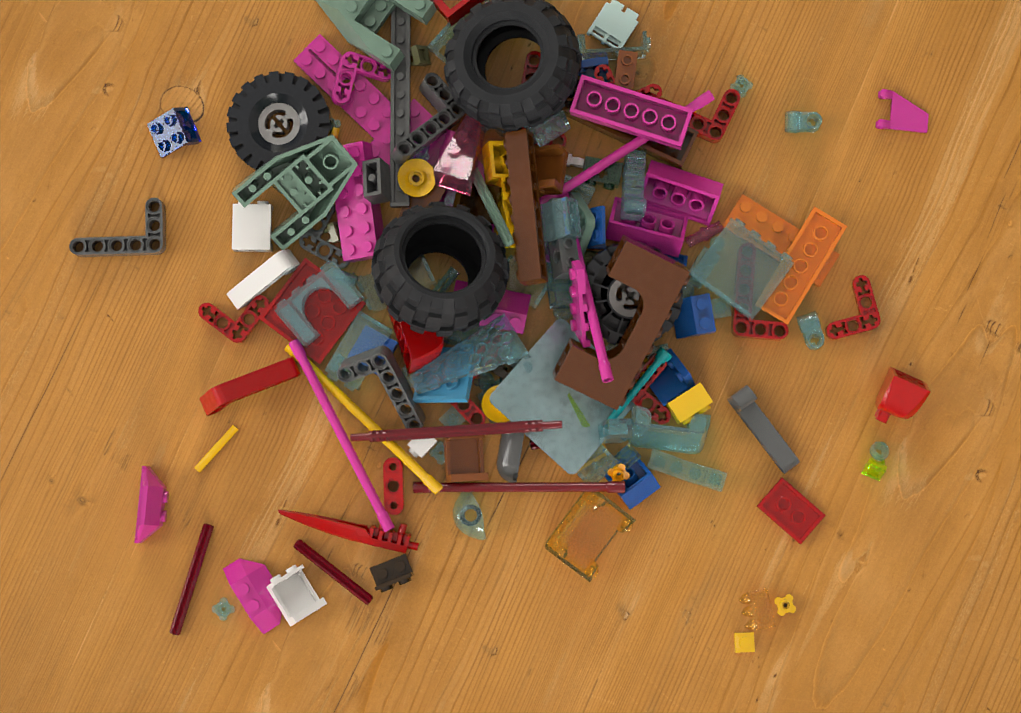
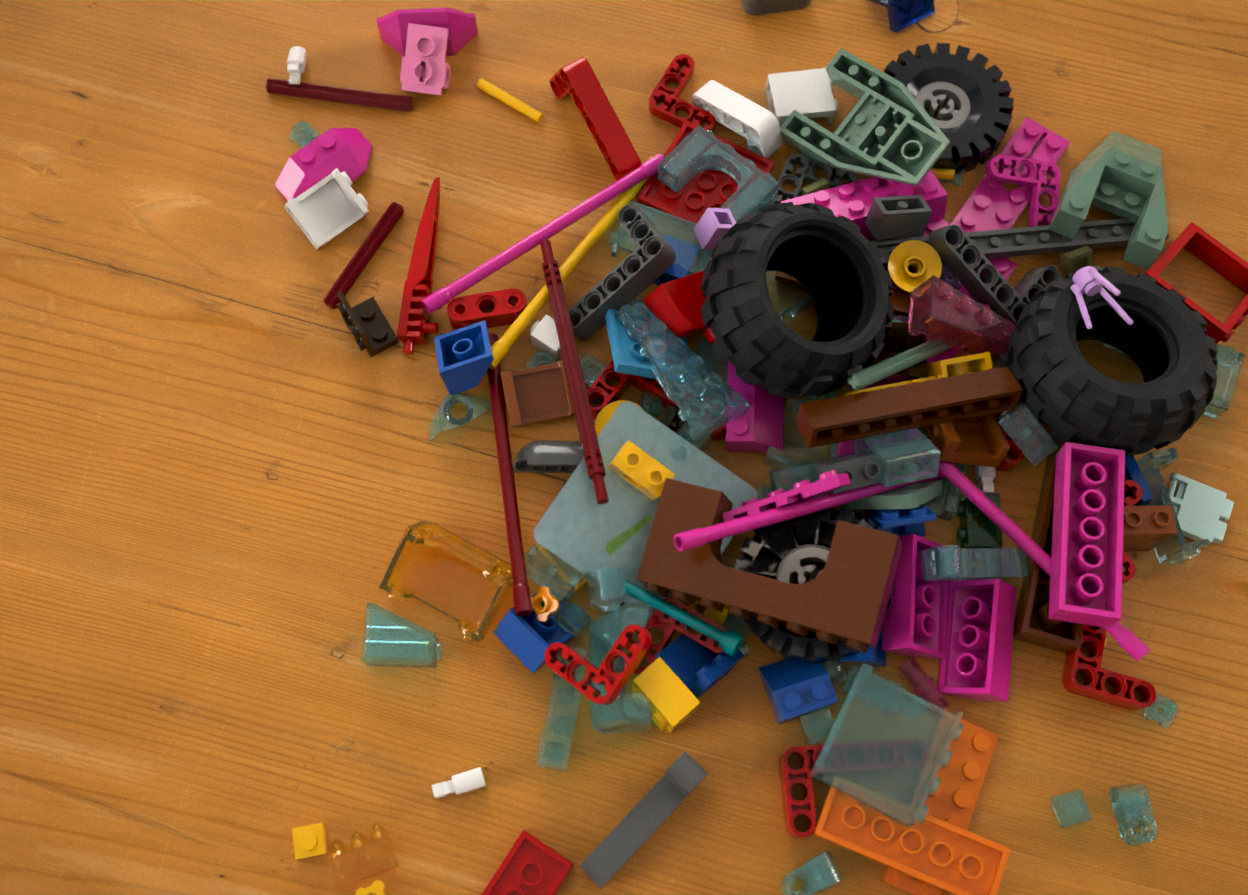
camera: 75 degrees right, 15 degrees down
(162, 609) = (296, 64): none -> white bar
(179, 509) = (424, 60): none -> bright pink piece
(364, 313) = (713, 226): none -> lavender brick
(432, 506) = (464, 356): none -> blue slope
(466, 68) = (1090, 282): none -> lavender plant
(540, 395) = (640, 470): none -> yellow brick
(626, 573) = (397, 642): none -> clear light blue slope
(675, 439) = (605, 673): none -> red beam
(723, 542) = (460, 783): none -> white bar
(793, 159) = (1071, 808): none -> clear light blue plate

